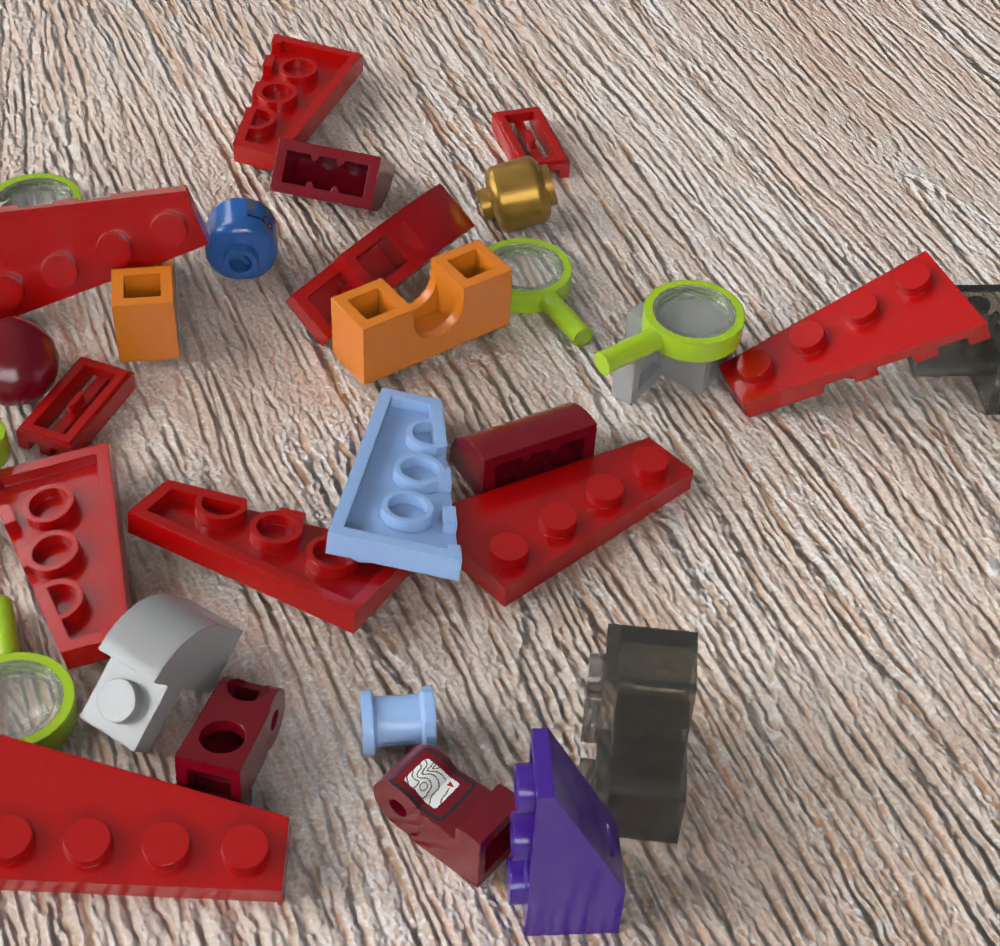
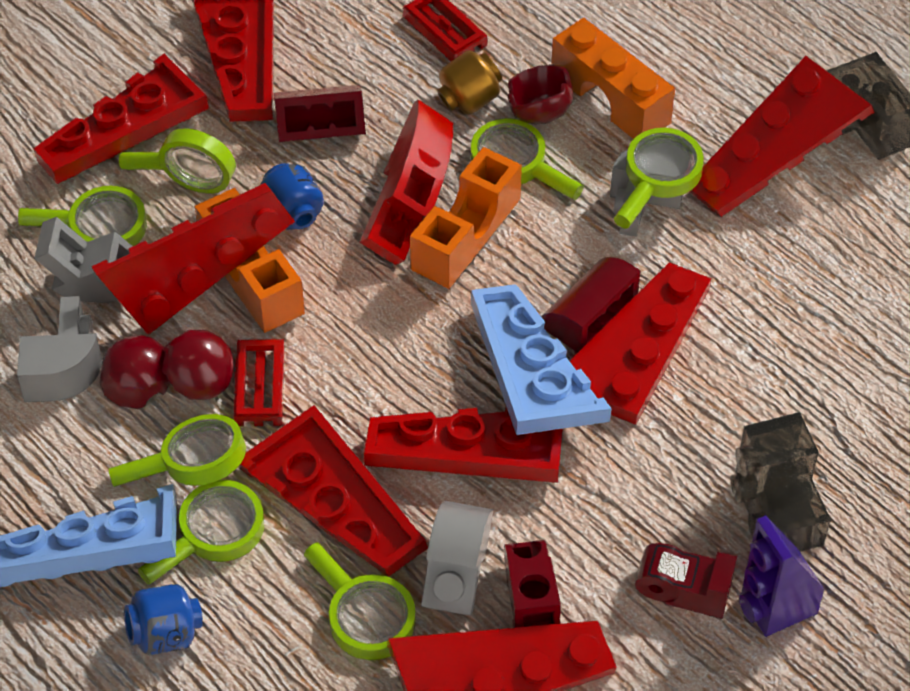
camera: 20 degrees left, 10 degrees up
(115, 127) = (135, 115): none -> red wing
(148, 161) = (188, 159): none -> lime piece
(397, 720) = (622, 532): light blue bush -> none
(592, 227) = (540, 94): none -> dark red hair
(675, 213) = (635, 92): none -> orange arch

